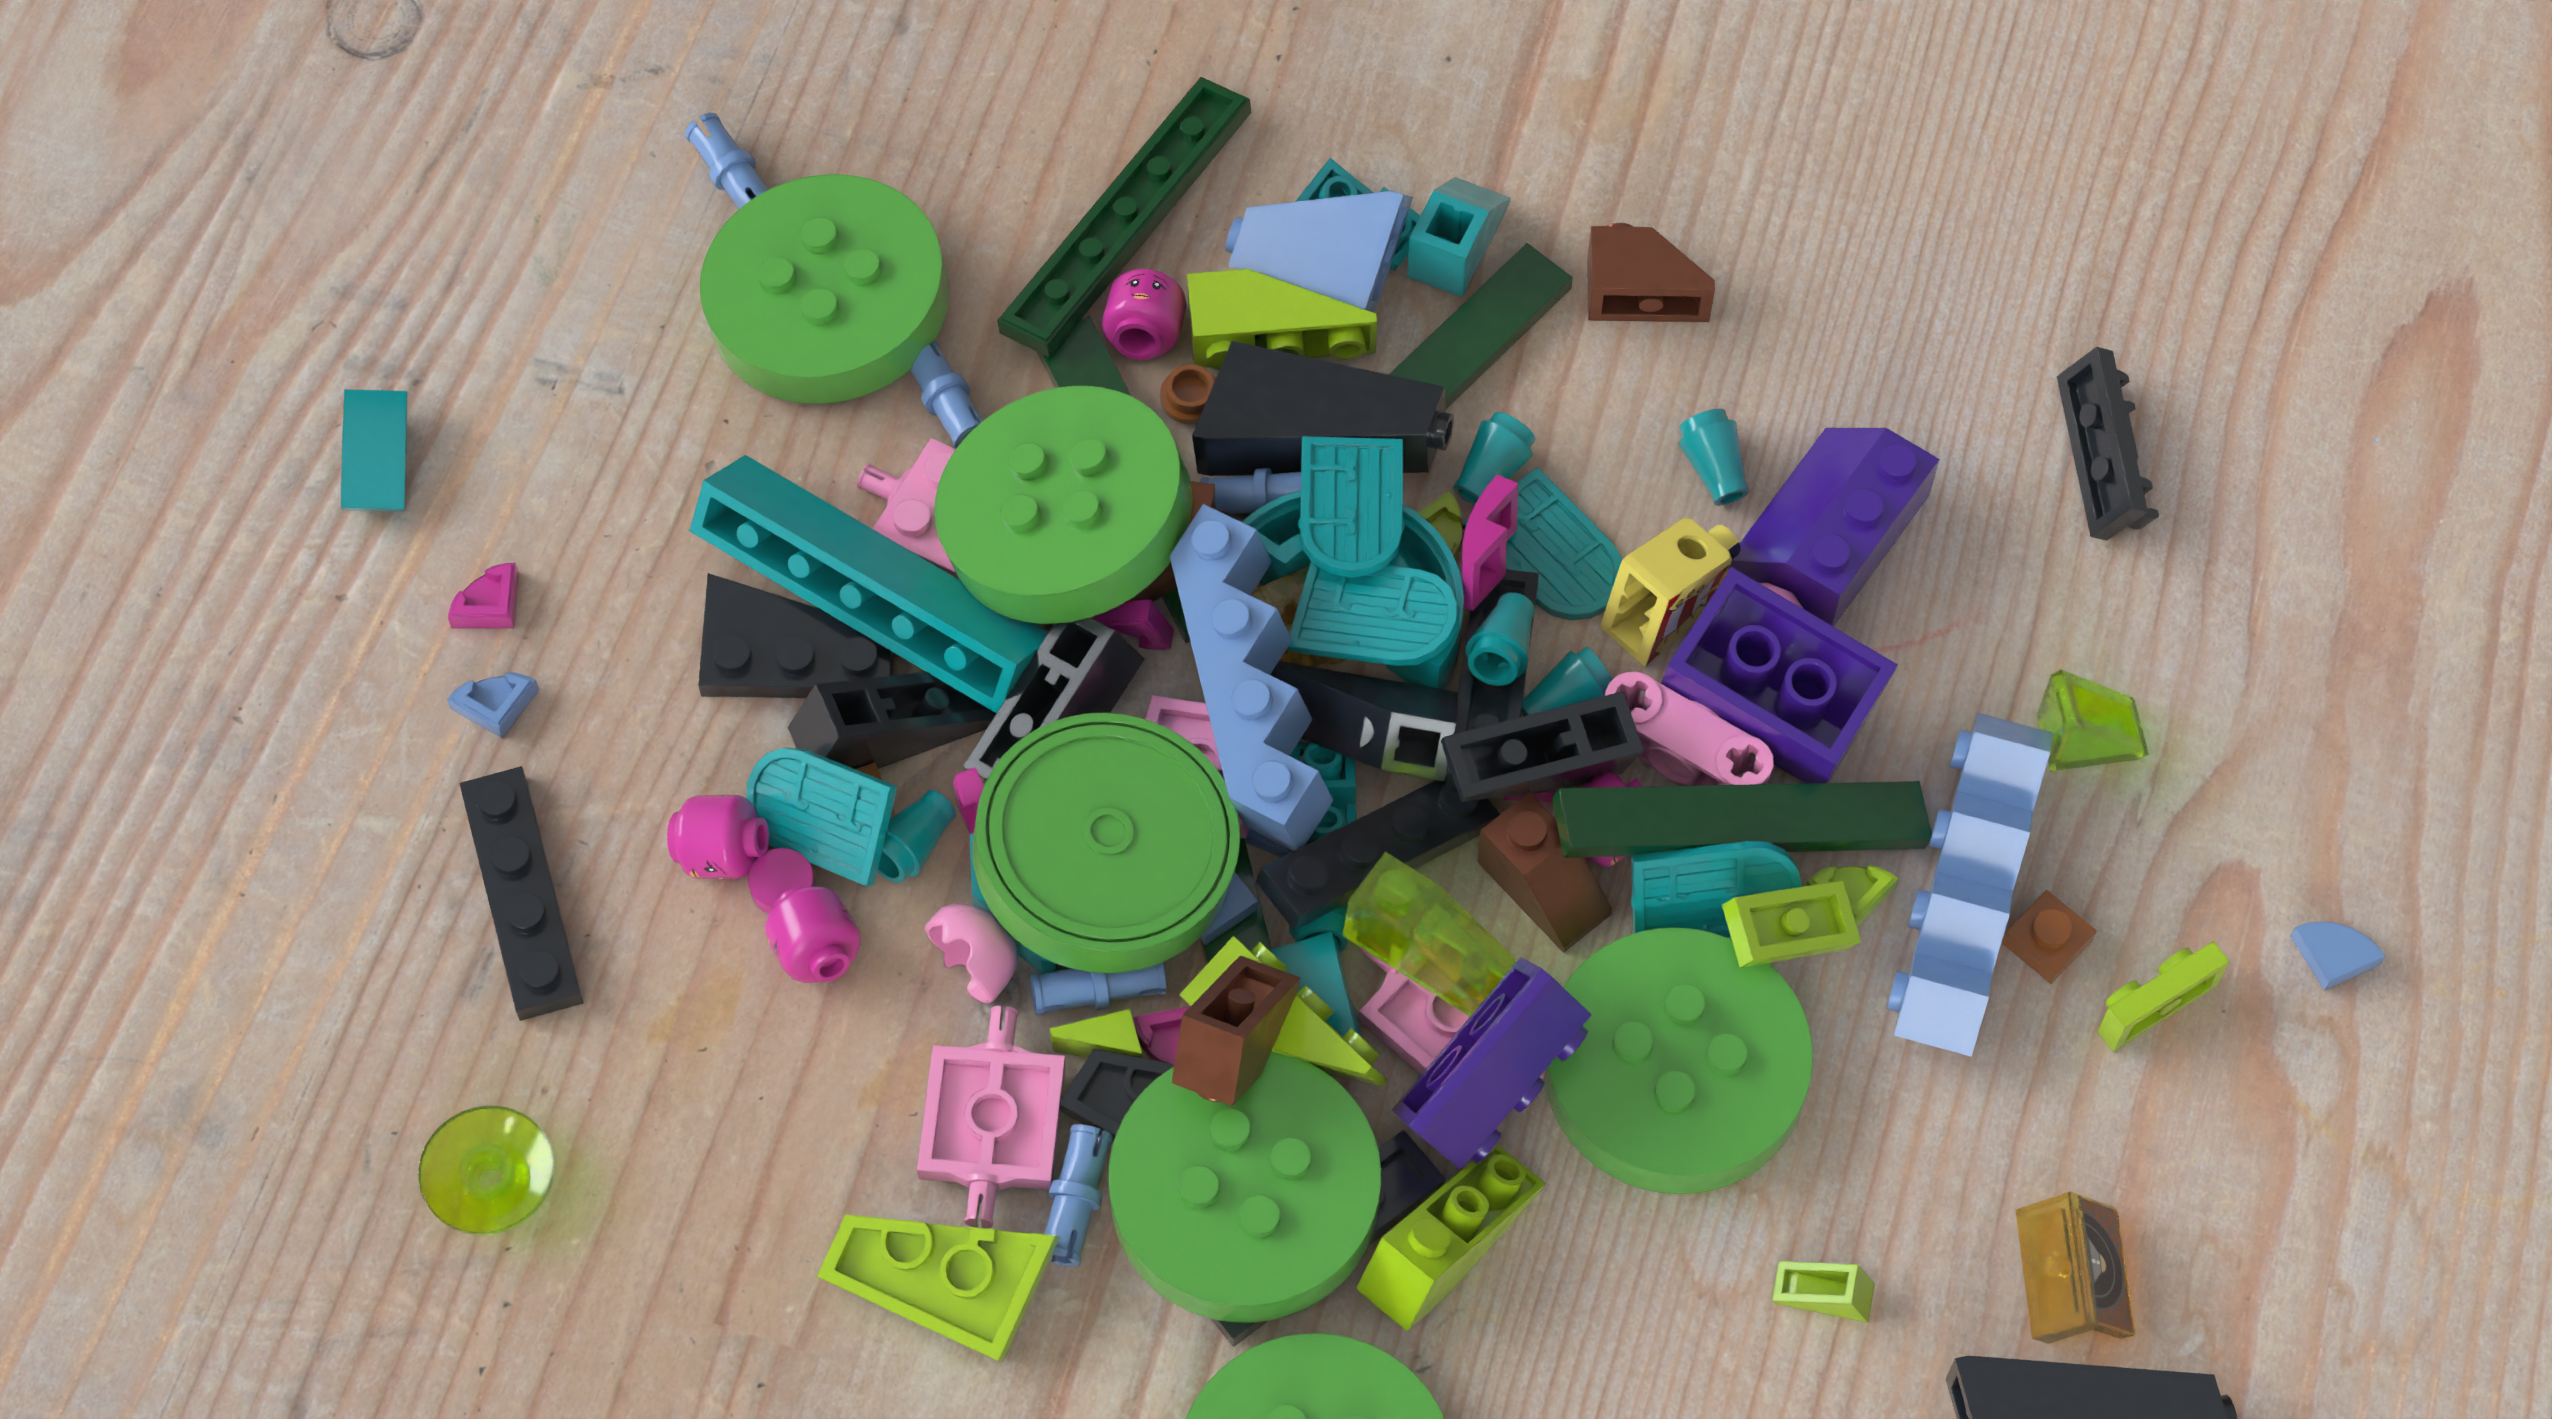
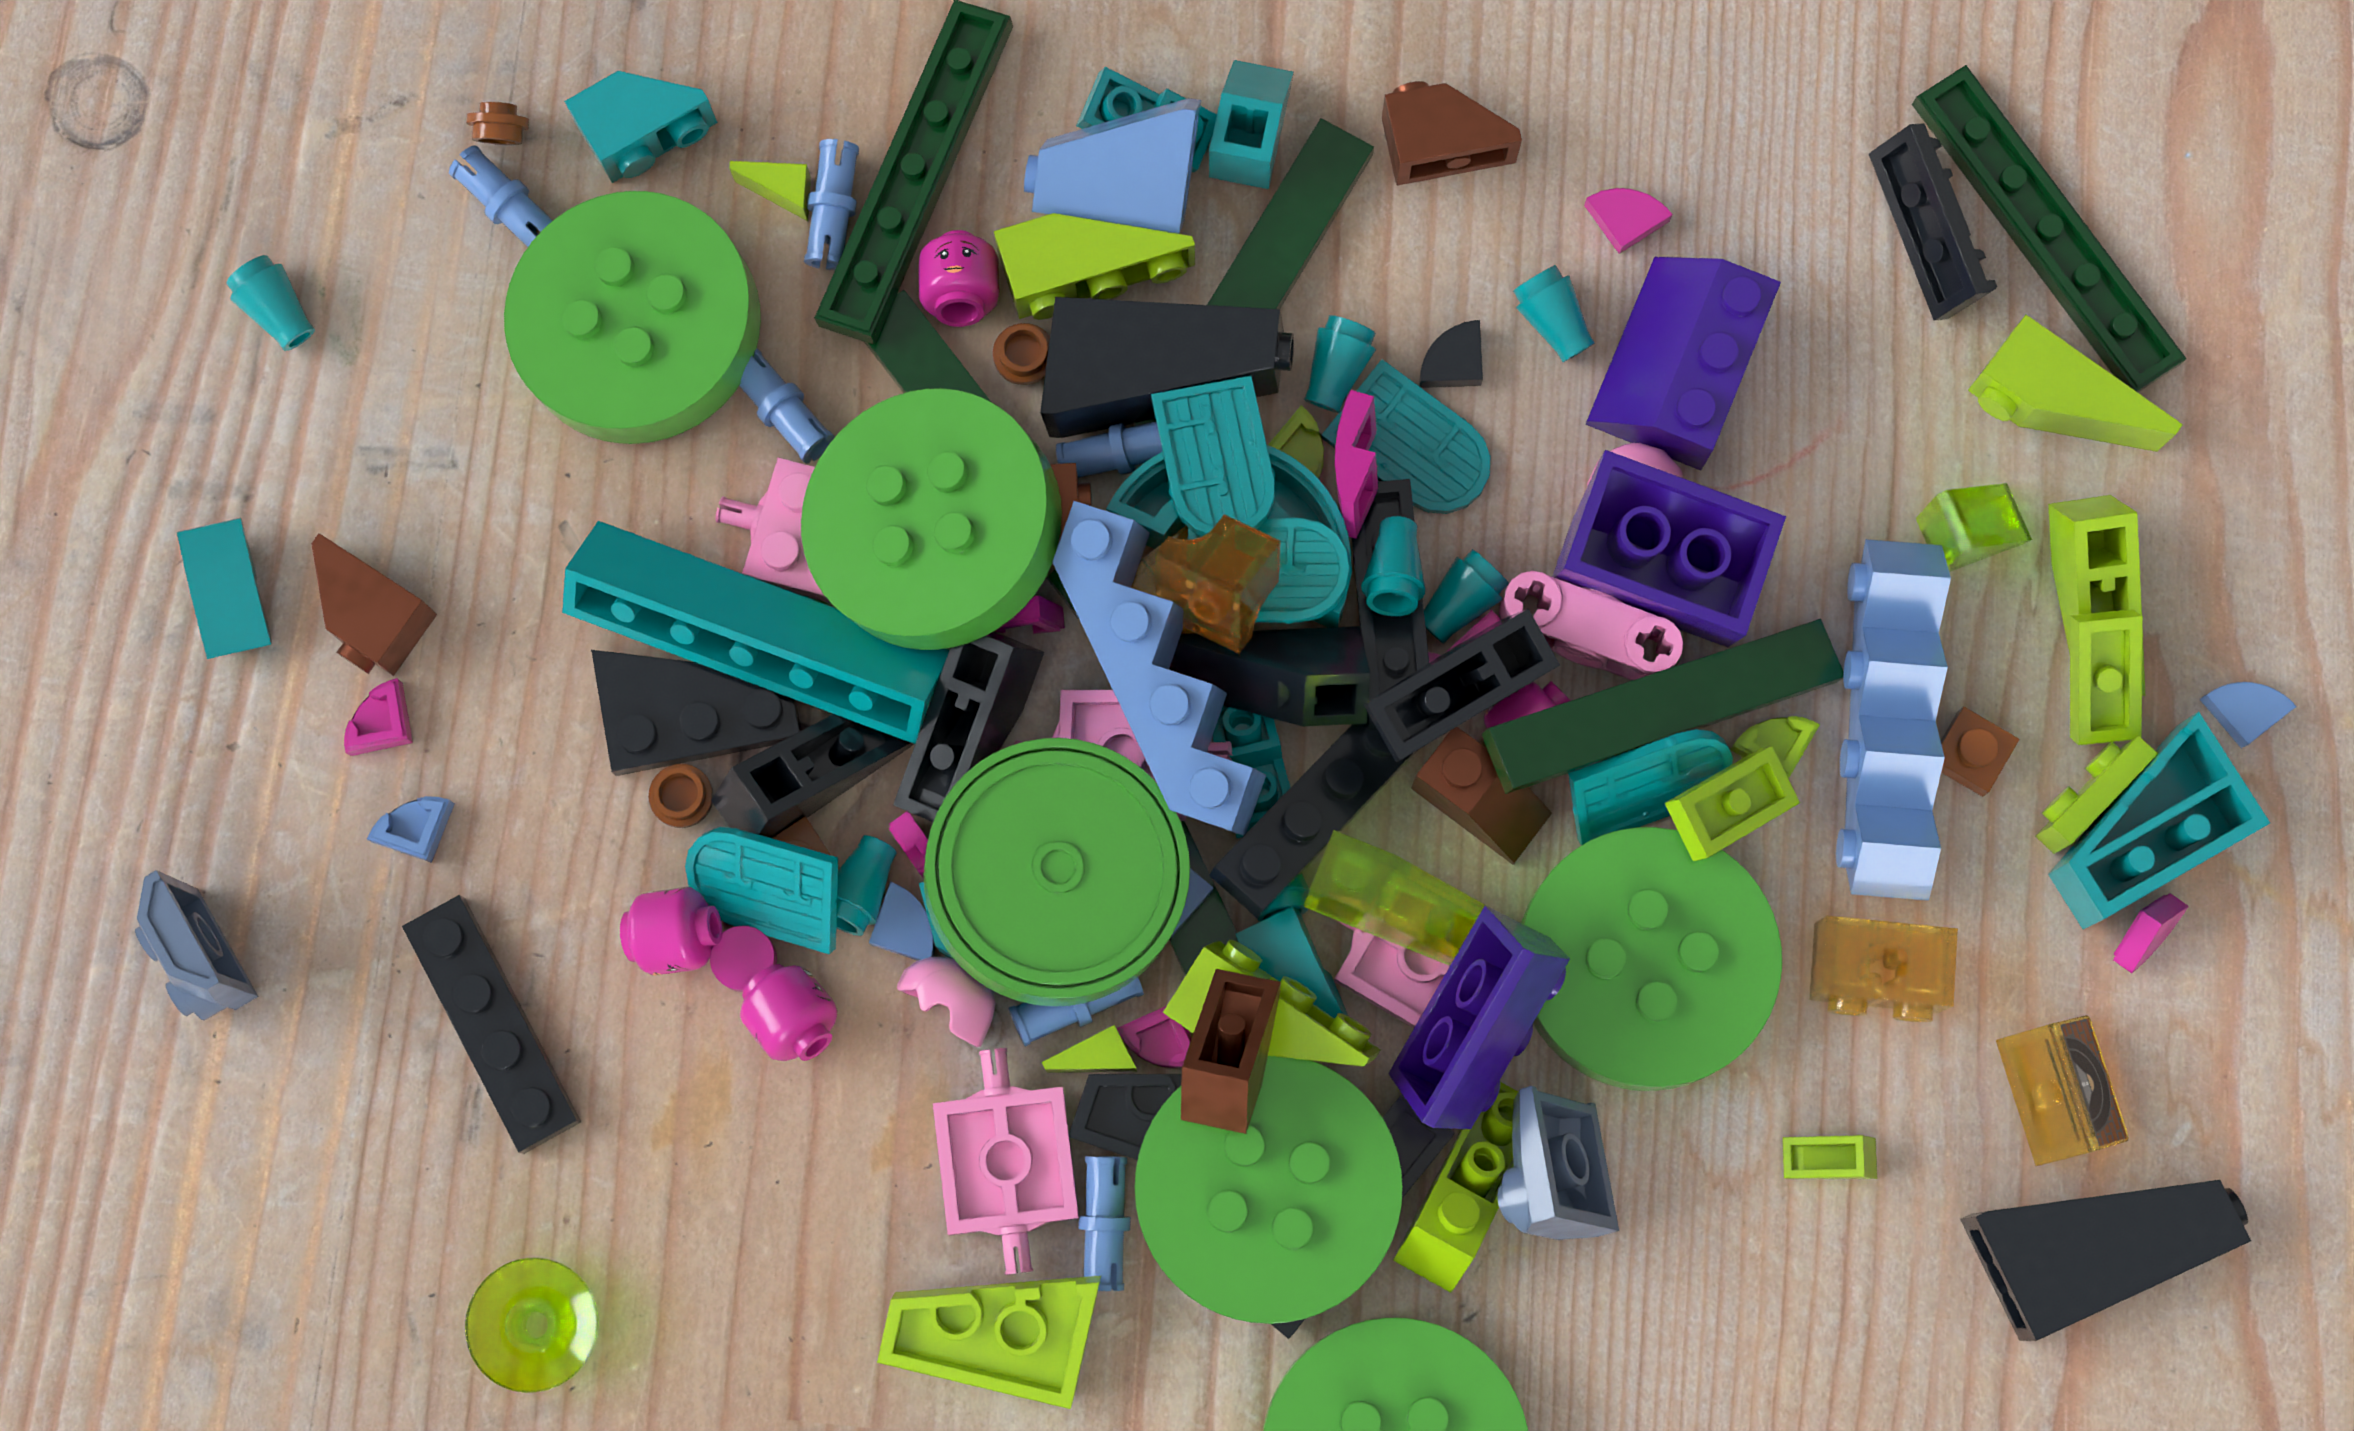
camera: 10 degrees left, 15 degrees up
(252, 755) = (190, 947): none -> sand blue slope
(487, 211) = (269, 299): none -> teal cone
(506, 495) = (367, 610): none -> copper slope
(741, 101) = (497, 124): none -> dark orange plate
(759, 721) = (681, 795): none -> dark orange plate
(875, 121) = (637, 119): none -> teal slope
(943, 879) = (903, 926): none -> medium blue tile
(992, 201) = (778, 182): none -> lime piece
(1039, 227) = (831, 203): none -> medium blue pin
(1327, 603) = (1219, 579): none -> clear orange brick
(1540, 1230) = (1558, 1171): none -> sand blue slope
(1607, 479) = (1454, 358): none -> black tile
(1667, 587) = (1541, 468): light yellow torso -> none
(1806, 386) = (1626, 215): none -> dark pink tile
(1947, 1104) = (1918, 953): none -> clear yellow brick
(2192, 882) = (2105, 677): none -> lime plate
(2193, 1137) = (2149, 931): none -> dark pink tile
(2203, 621) = (2058, 390): none -> lime slope
(2203, 816) = (2095, 558): none -> lime slope
(2219, 1036) = (2159, 826): none -> teal wedge
(2222, 481) = (2048, 230): none -> dark green tile

